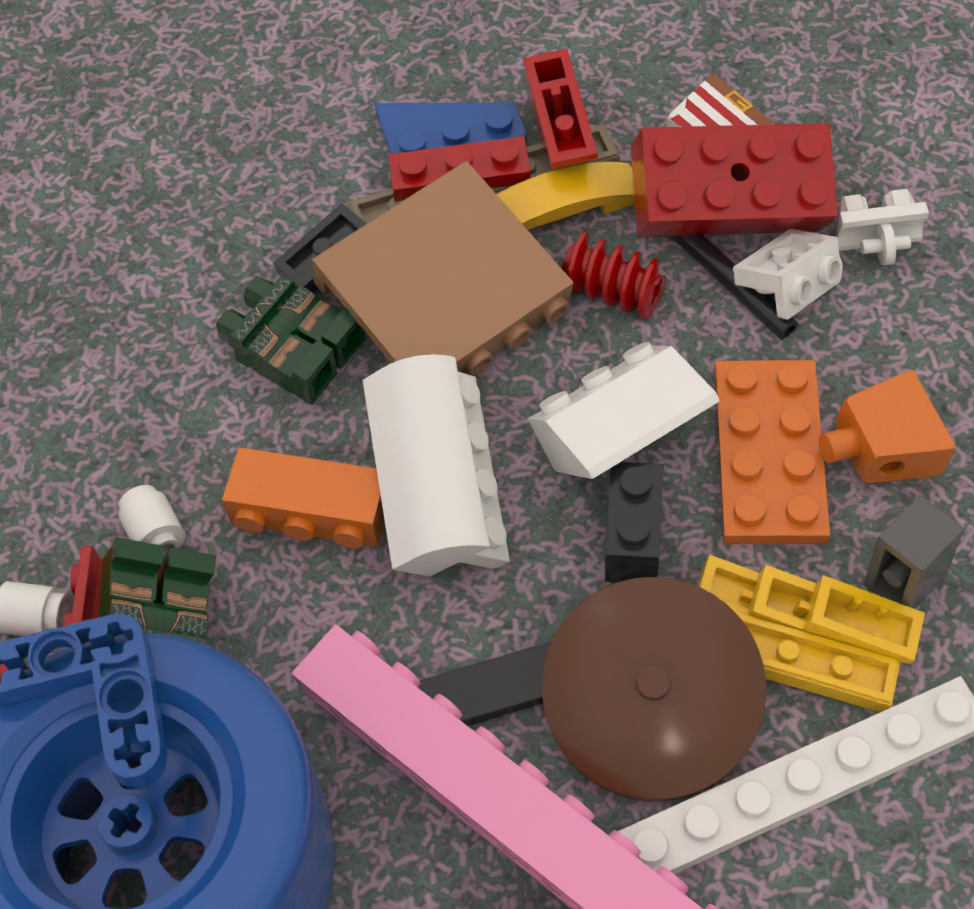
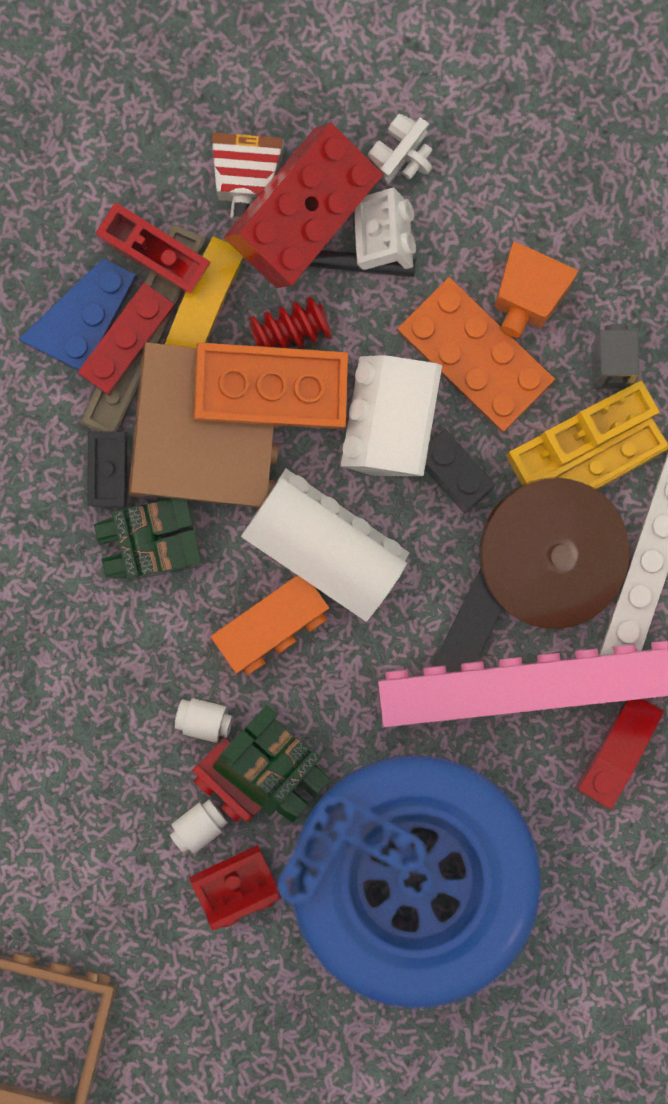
camera: 50 degrees left, 25 degrees up
(537, 287) = (270, 386): none -> orange plate

